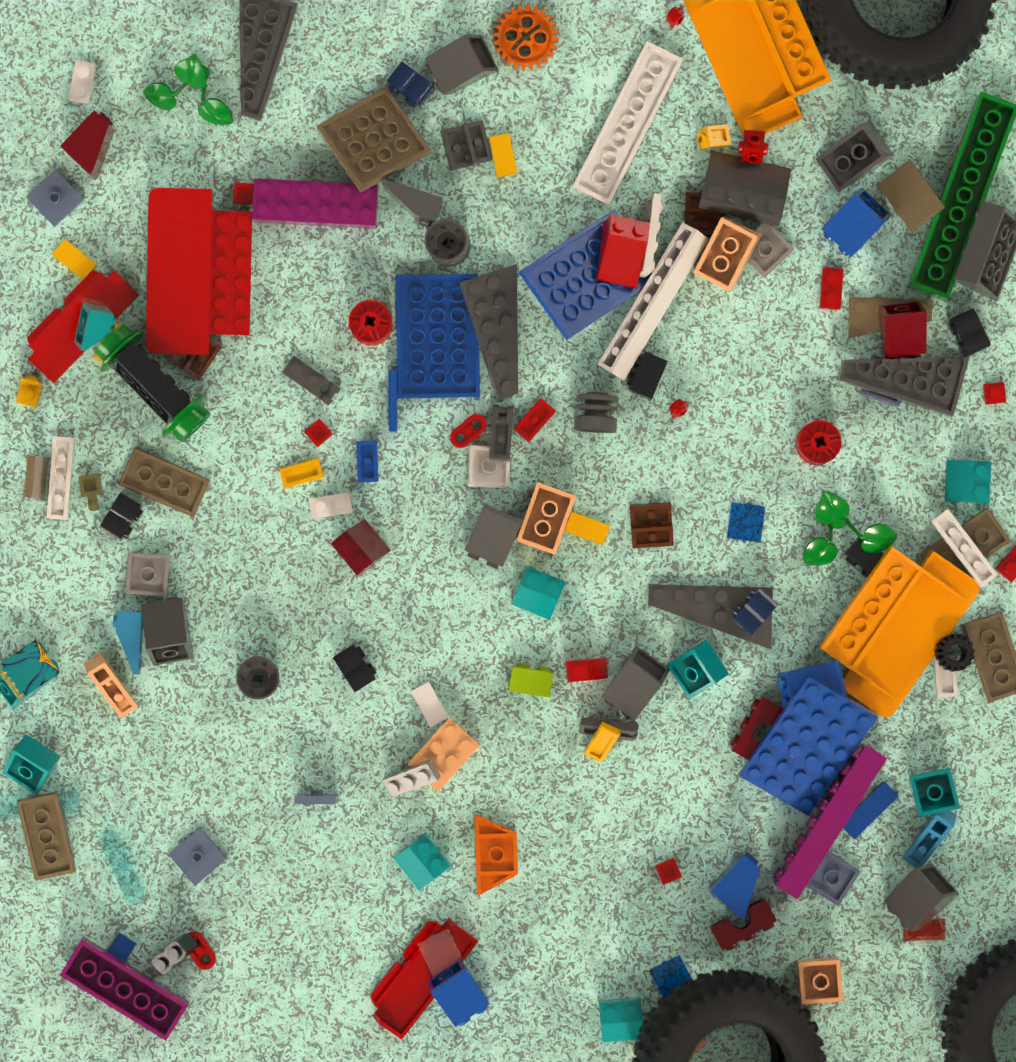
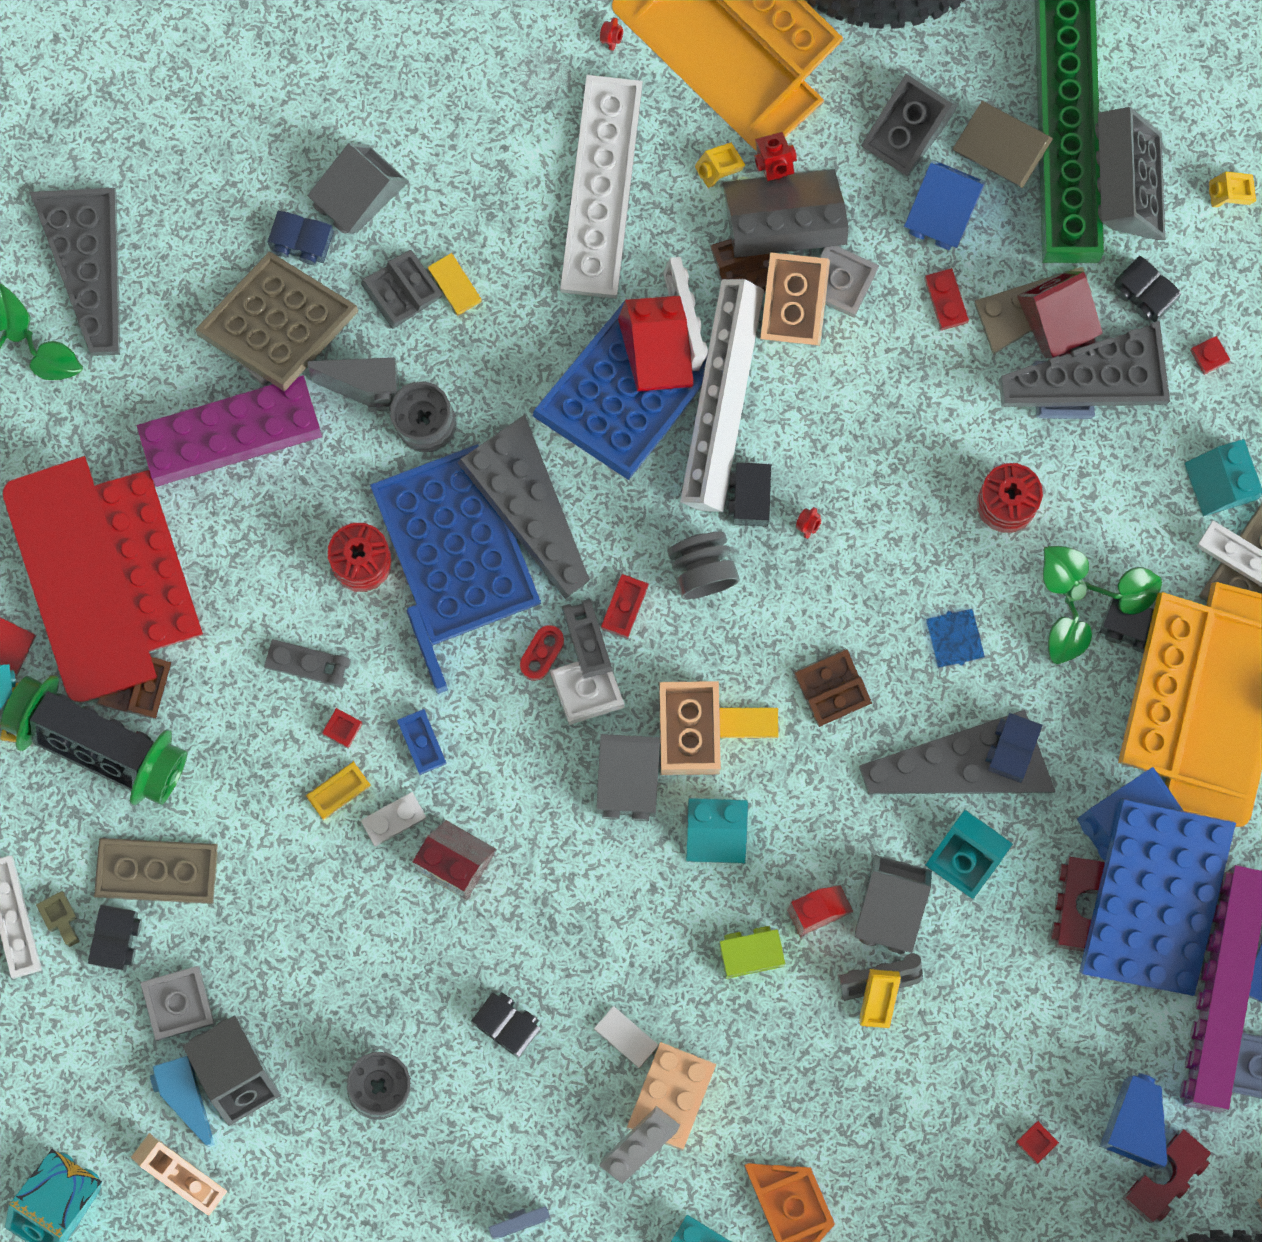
camera: 25 degrees left, 10 degrees down
(243, 193) = (129, 453): red plate -> none
(513, 24) = (405, 116): orange gear -> none

